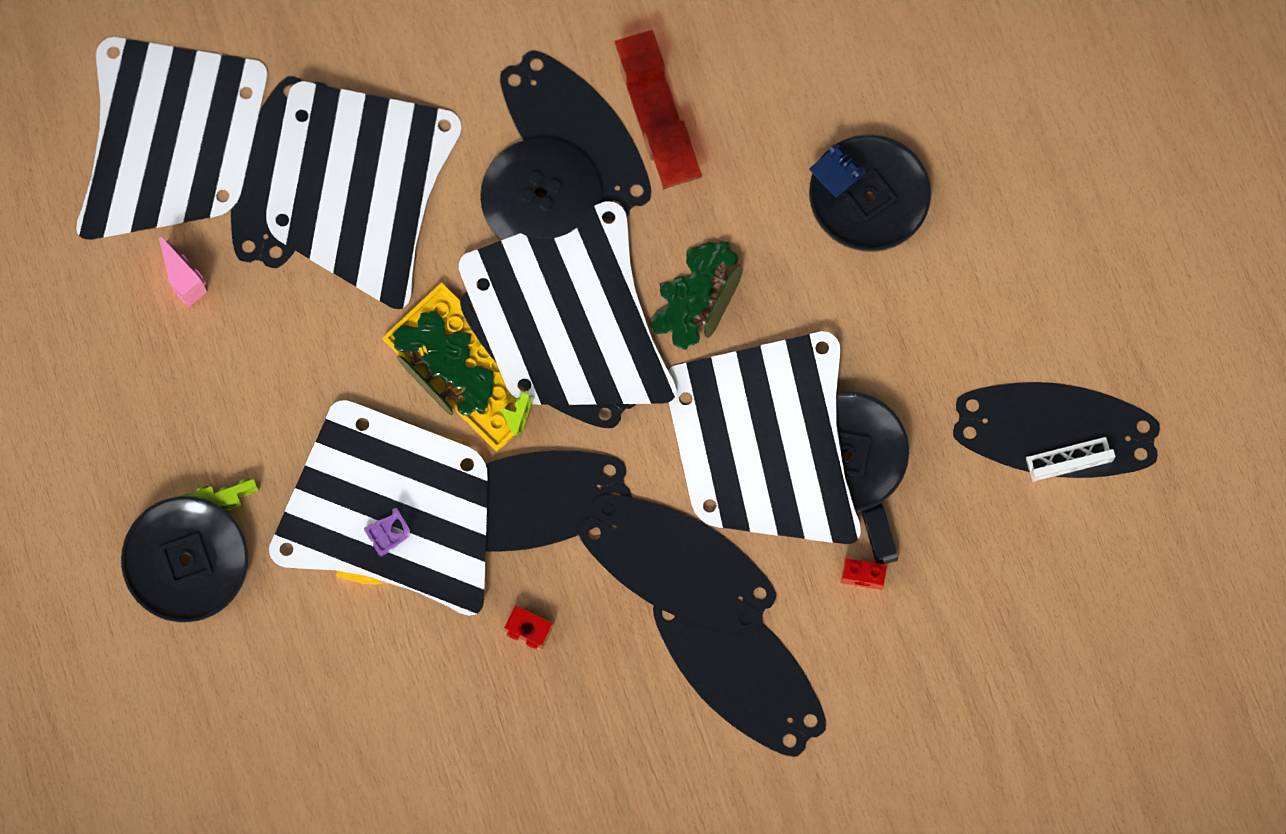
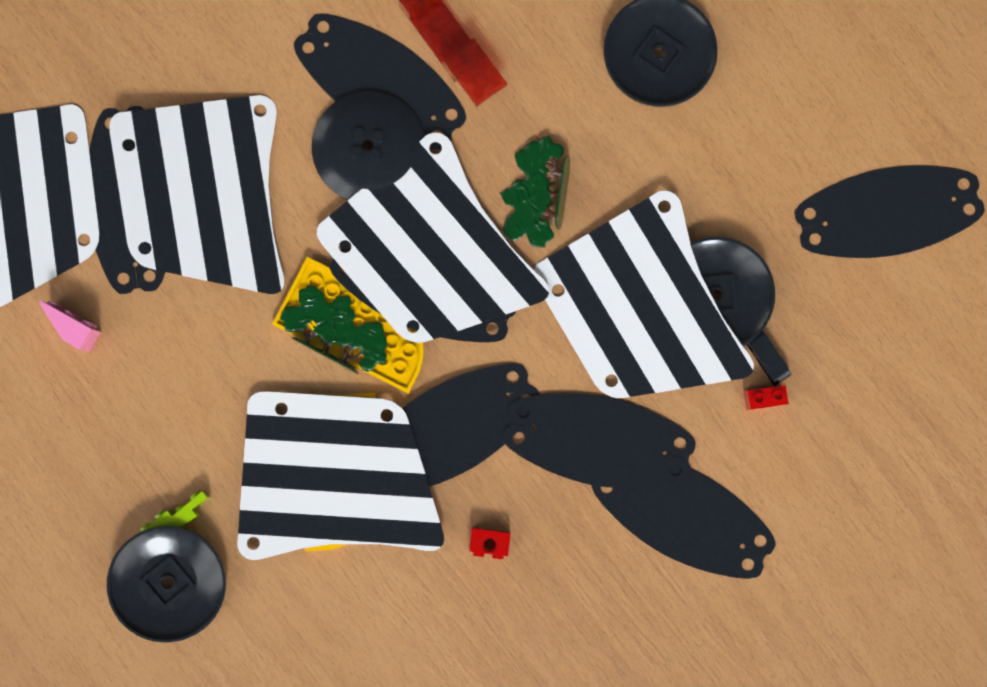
camera: 20 degrees left, 10 degrees up
(380, 533) = (334, 505): medium lavender piece -> none
(518, 419) = (417, 361): lime slope -> none
(837, 170) = (625, 39): dark blue hinge -> none
(1070, 464) = (925, 233): white fence -> none

